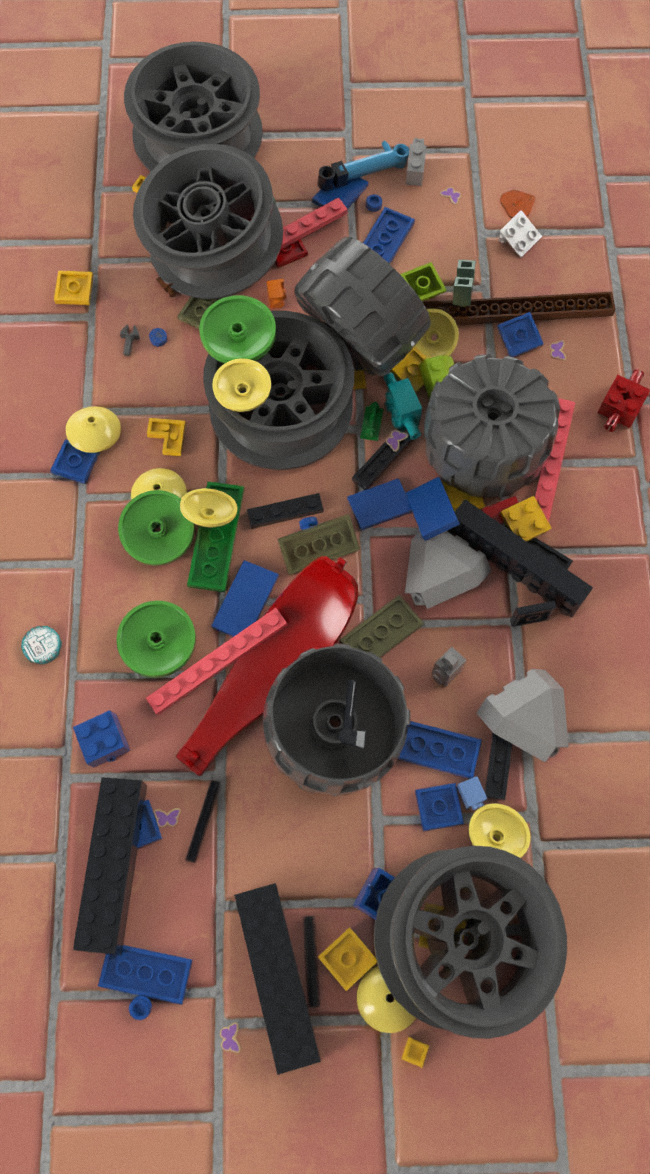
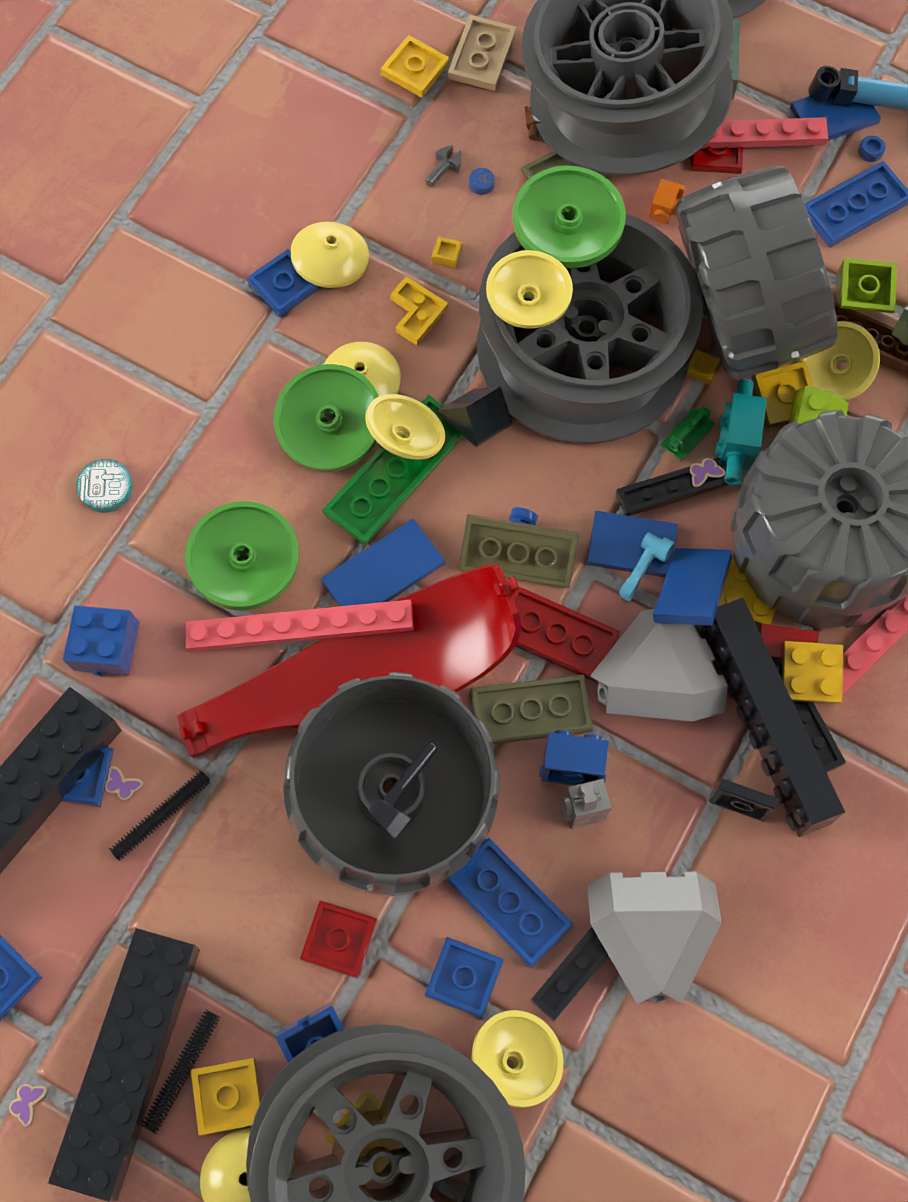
camera: 30 degrees right, 0 degrees up
(110, 259) = (482, 52): none -> tan plate
(164, 391) = (446, 252): none -> yellow tile
(244, 477) = (478, 414): none -> black slope
(285, 510) = (505, 485): black plate -> none
(354, 829) = (338, 939): none -> red tile
(379, 578) = (562, 634): none -> red tile
(395, 499) = (654, 548): none -> medium azure brick
(426, 645) = (574, 758): none -> blue brick
(472, 793) = (516, 986): medium blue brick -> none

